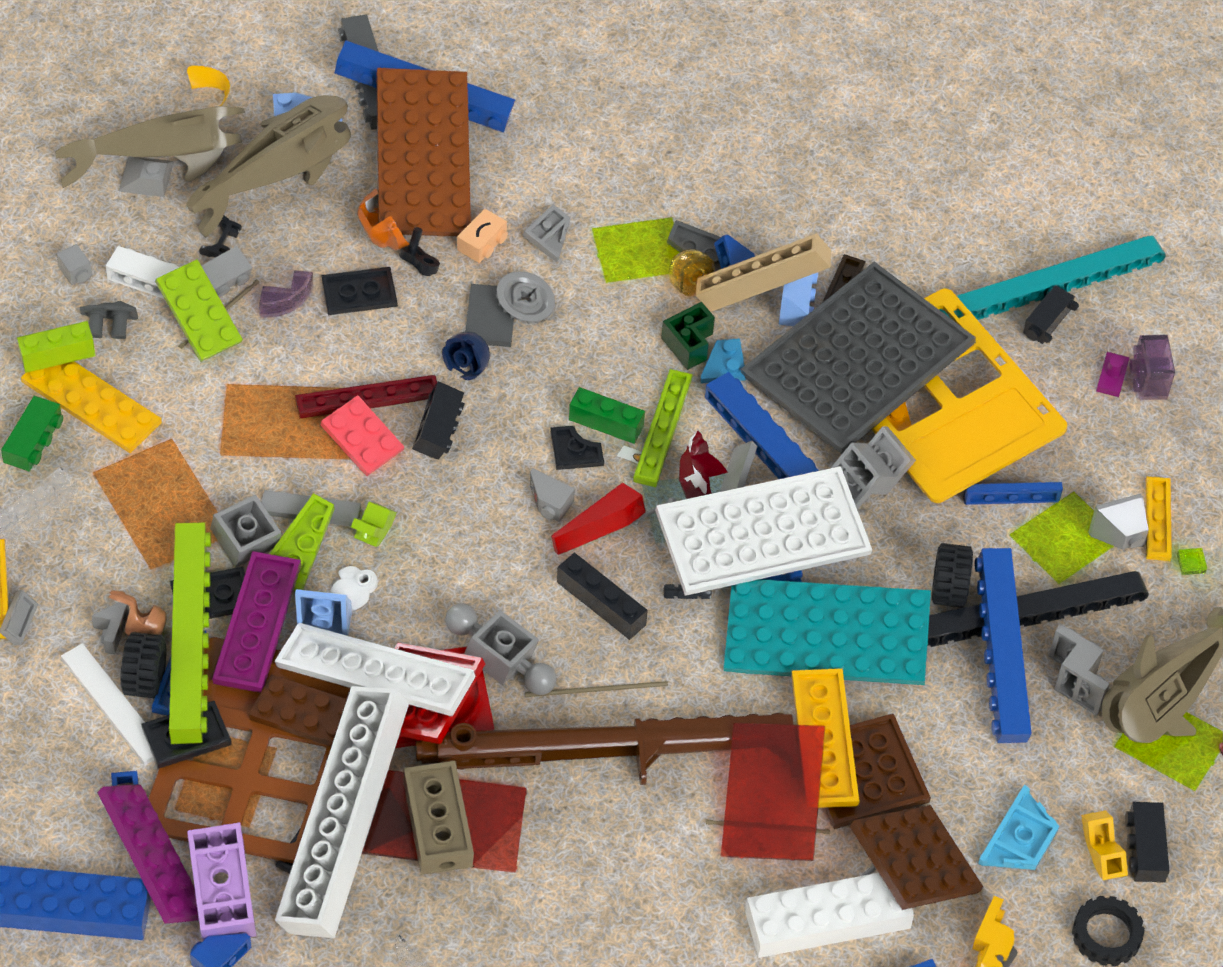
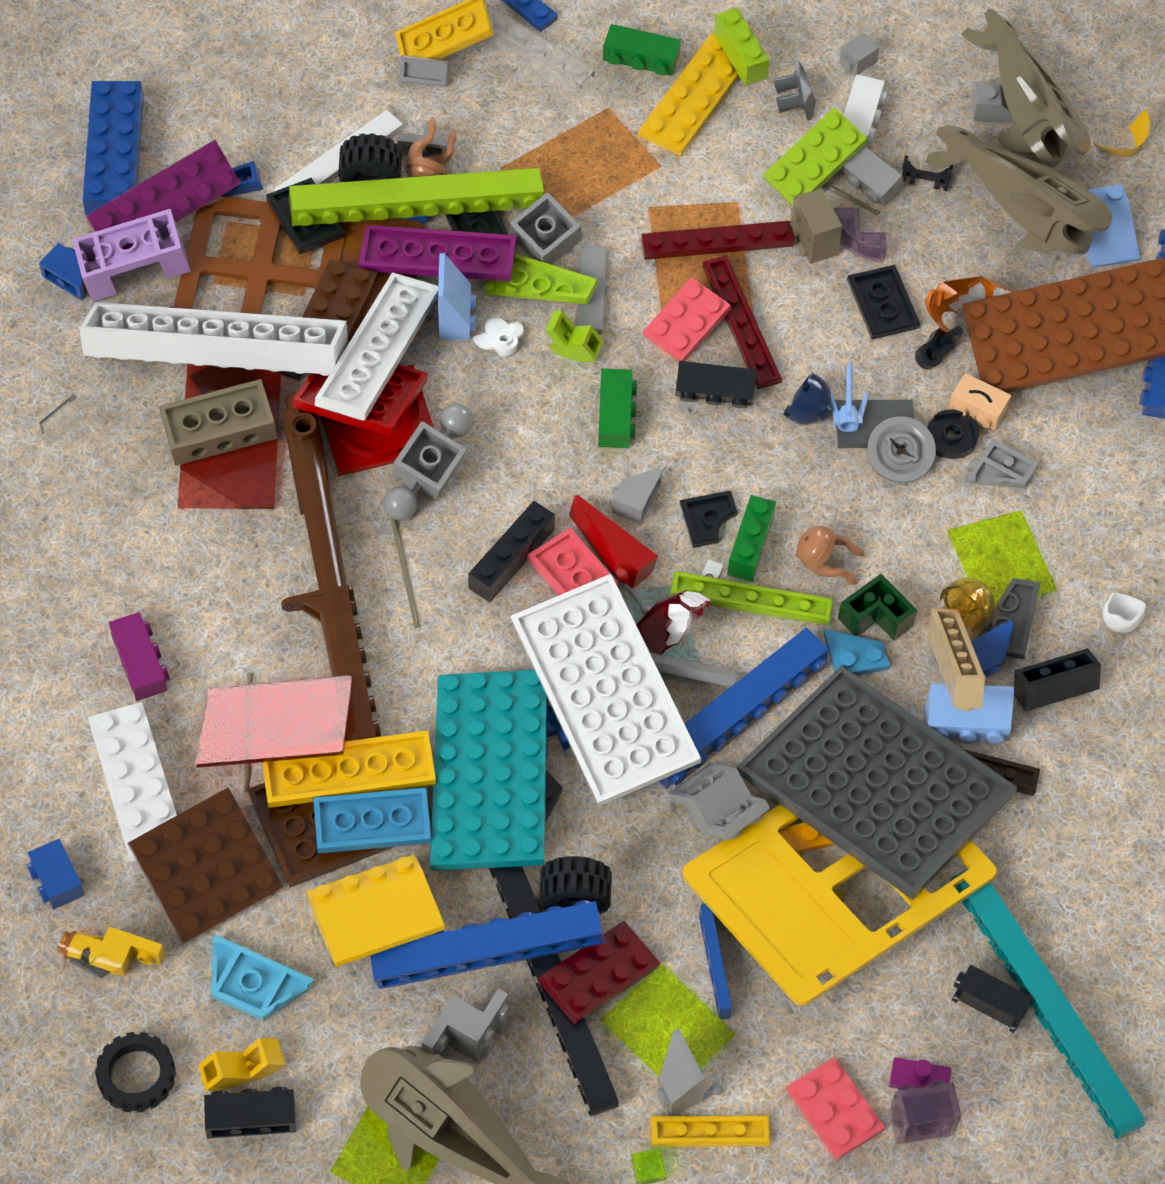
camera: 85 degrees right, 5 degrees up
(272, 403) = (717, 240): none -> dark red plate
(278, 319) = (815, 226): none -> dark tan brick
(453, 501) = (616, 408): none -> green brick
(489, 326) = (848, 418): none -> light blue plant
(510, 250) = (953, 447): none -> black plate
(625, 552) = (567, 563): none -> coral plate
(635, 365) = (816, 547): none -> nougat hair
(686, 908) = (139, 656): none -> magenta brick
(705, 173) = (1123, 613): none -> white hair
(766, 220) = (1057, 679): none -> black brick
(877, 723) = (372, 820): none -> dark azure plate
(969, 726) = (374, 910): none -> yellow slope
(1035, 577) = (599, 973): none -> dark red plate
(1139, 433) = (835, 1108): none -> coral plate

